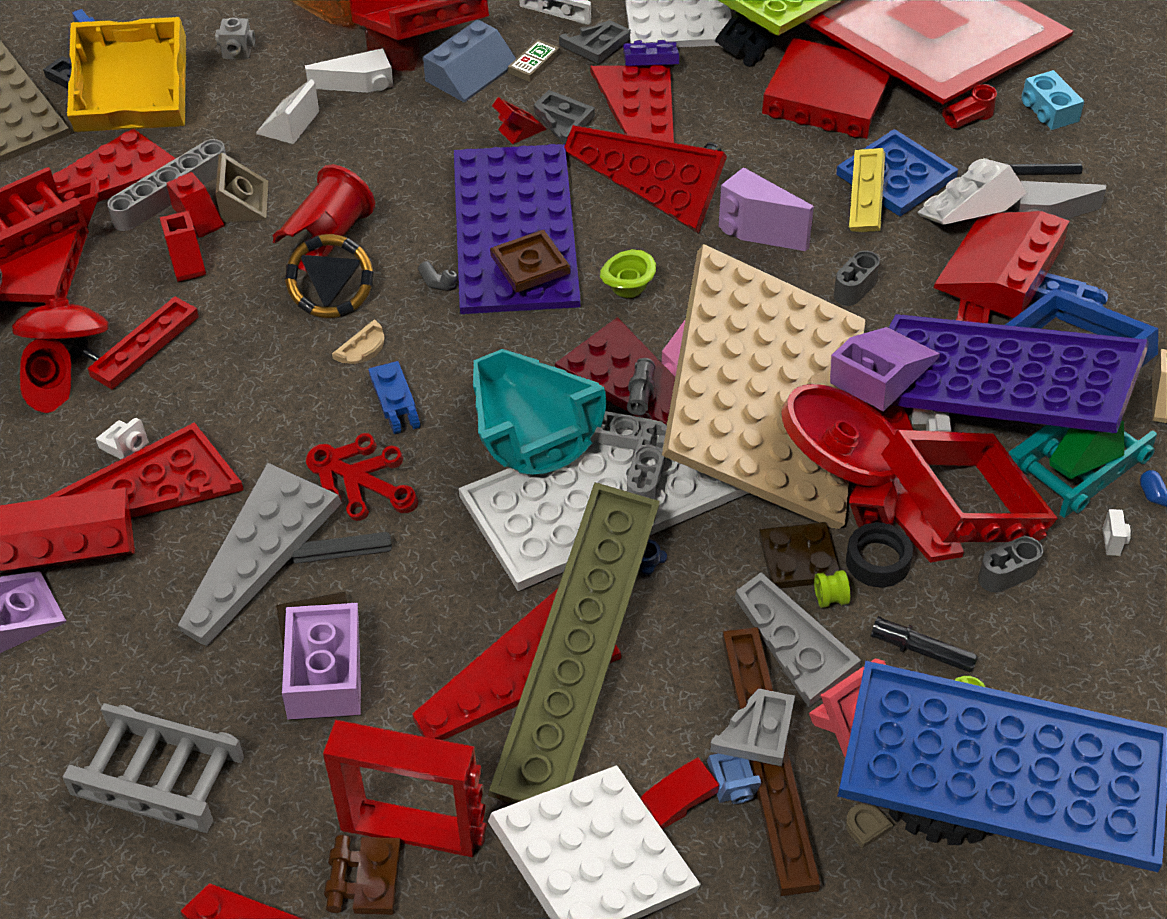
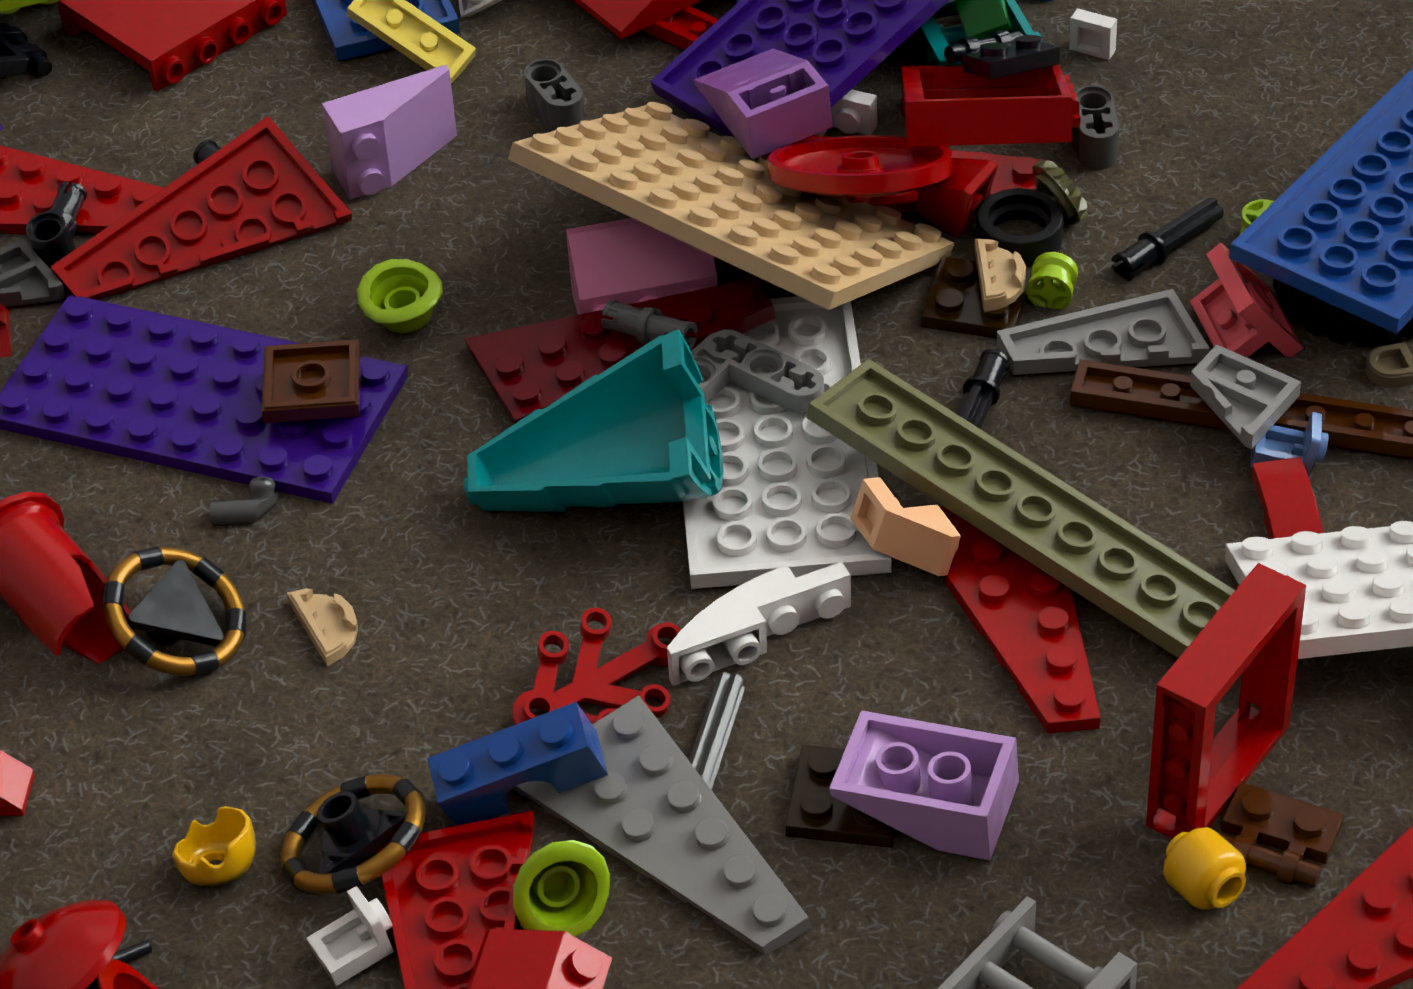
camera: 65 degrees left, 5 degrees down
(143, 342) = (145, 880): red plate -> none
(168, 361) = (226, 839): none -> yellow hair
(181, 513) = (562, 888): none -> lime hat
(196, 412) = (354, 834): none -> black piece
(259, 458) = (548, 748): none -> blue arch
(307, 836) = (1204, 868): none -> yellow head
(394, 395) = (459, 610): blue hinge -> none
(431, 526) = (738, 623): none -> white slope
(531, 582) = (911, 534): none -> light nougat slope
(606, 117) = (53, 230): none -> black pin
(687, 585) = (983, 387): none -> black axle
(811, 555) = (999, 274): none -> tan tile
(919, 561) = (1056, 184): none -> olive gear
(1032, 481) = (1002, 54): none -> black plate

